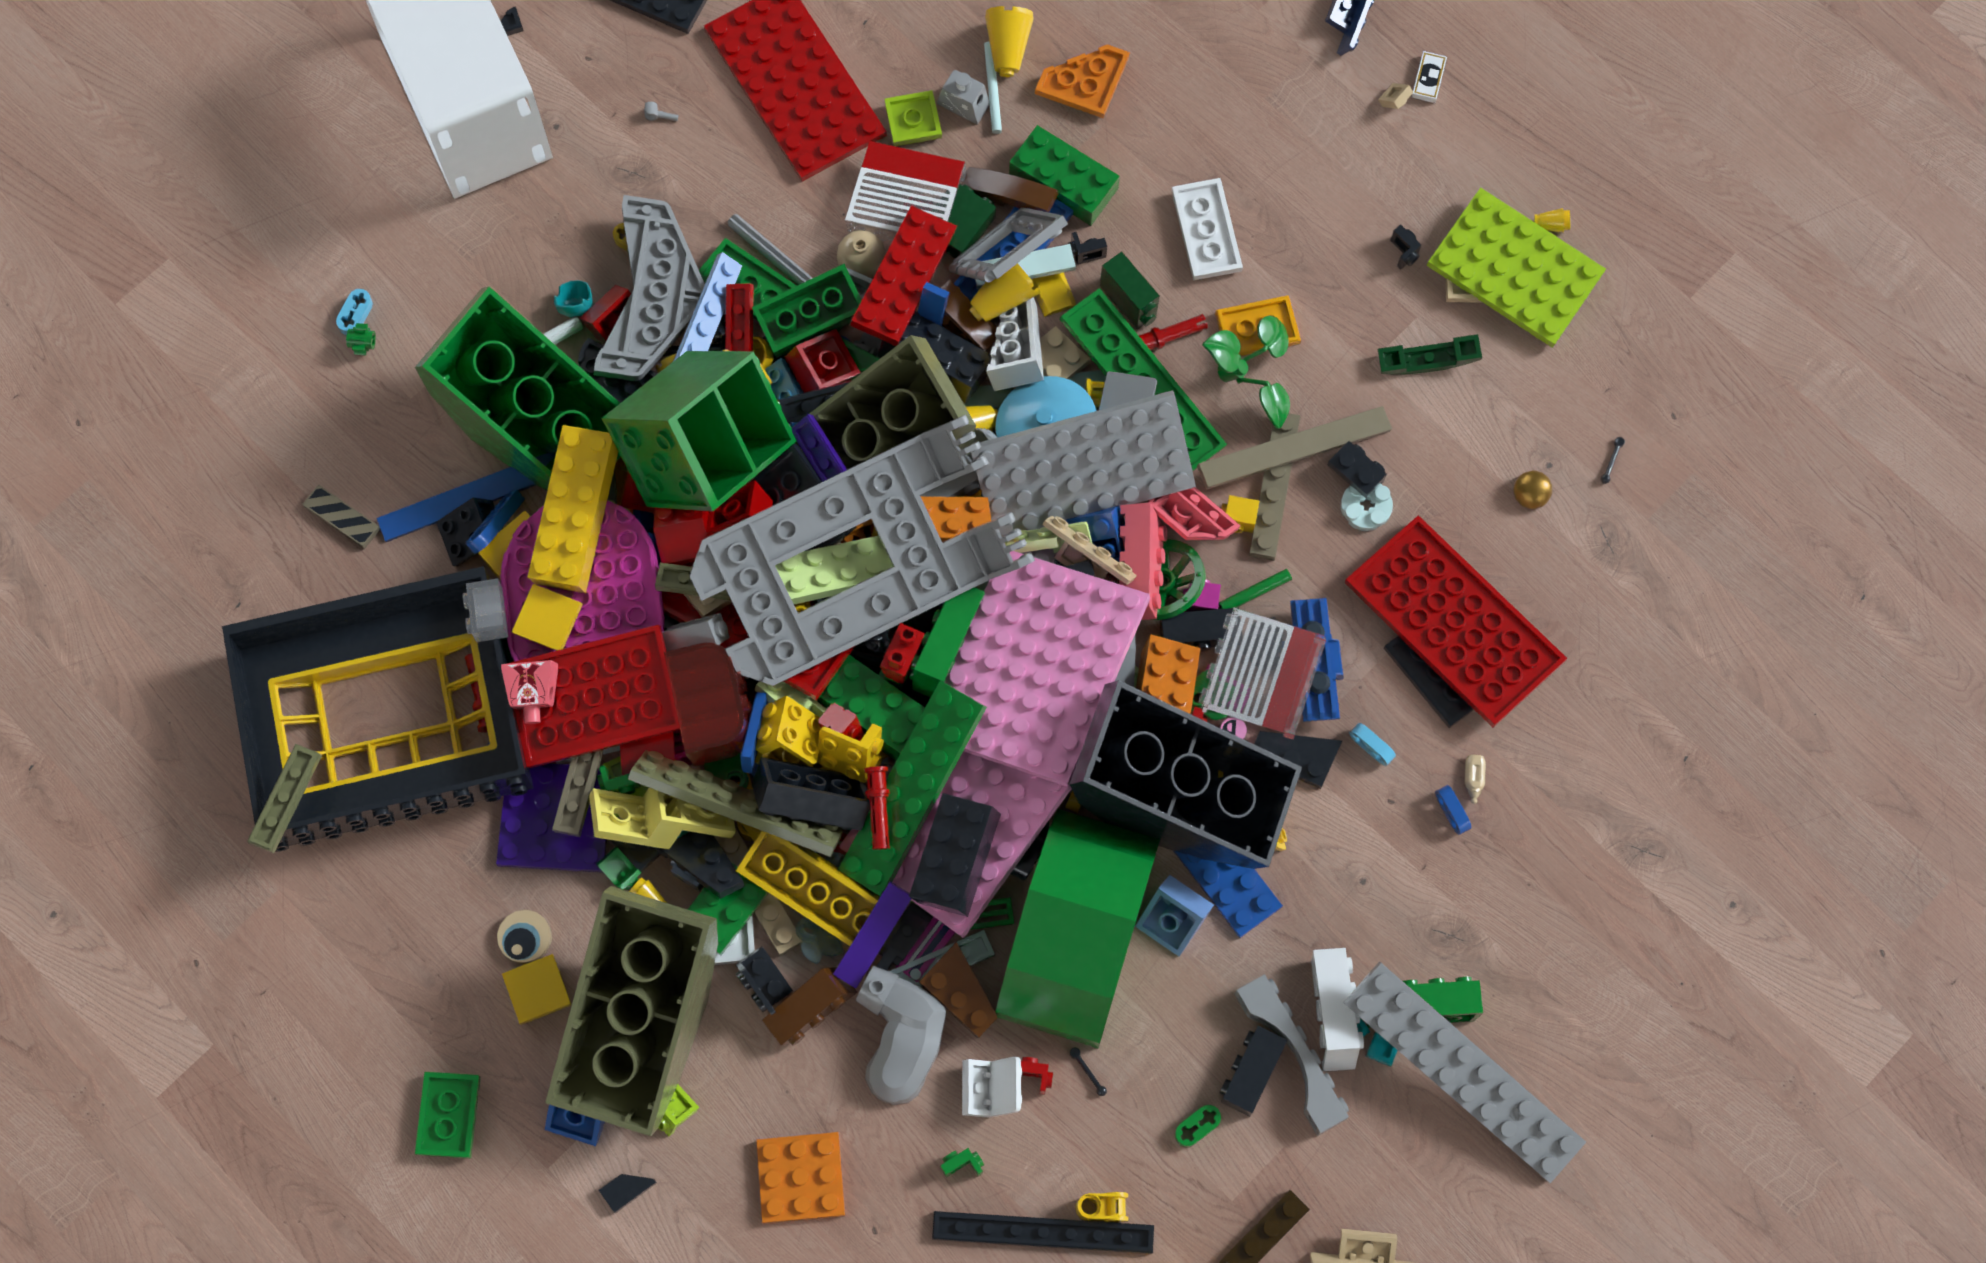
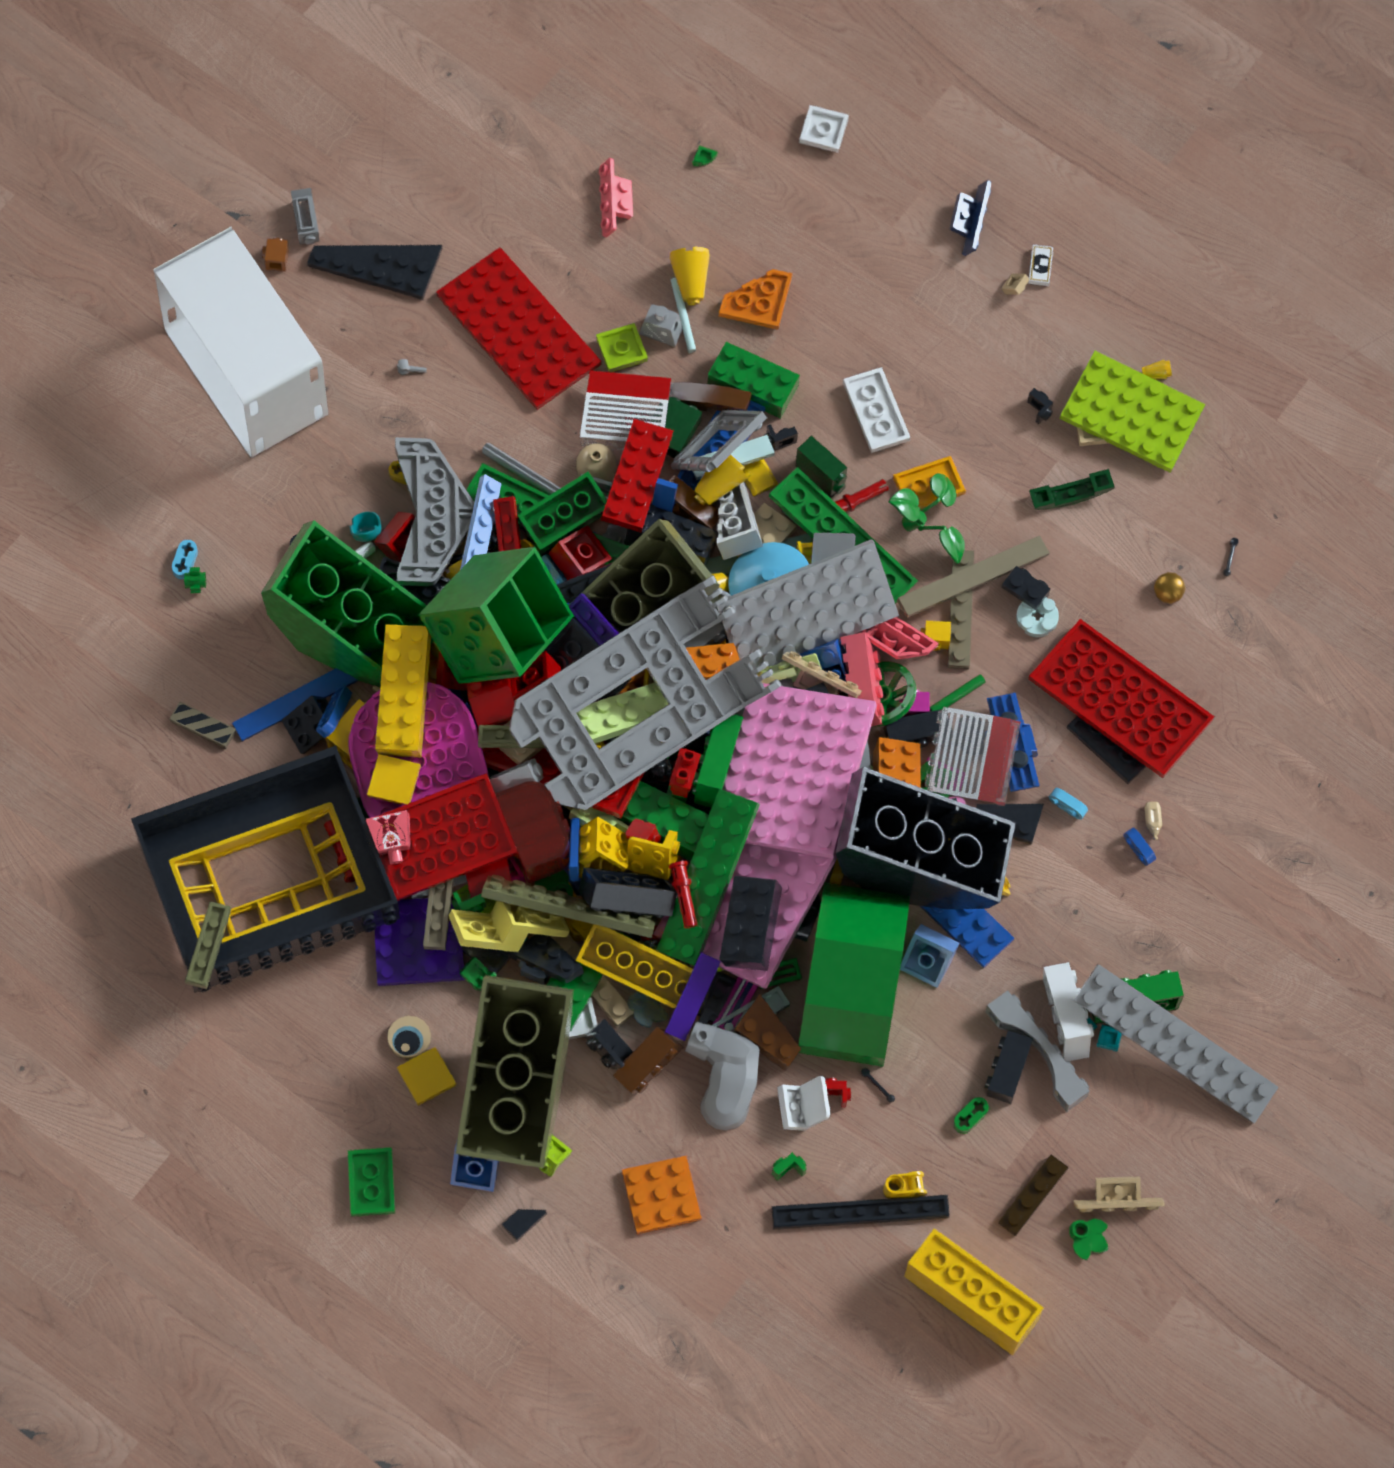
camera: 10 degrees left, 5 degrees down
(485, 610) = (346, 779): clear brick -> none

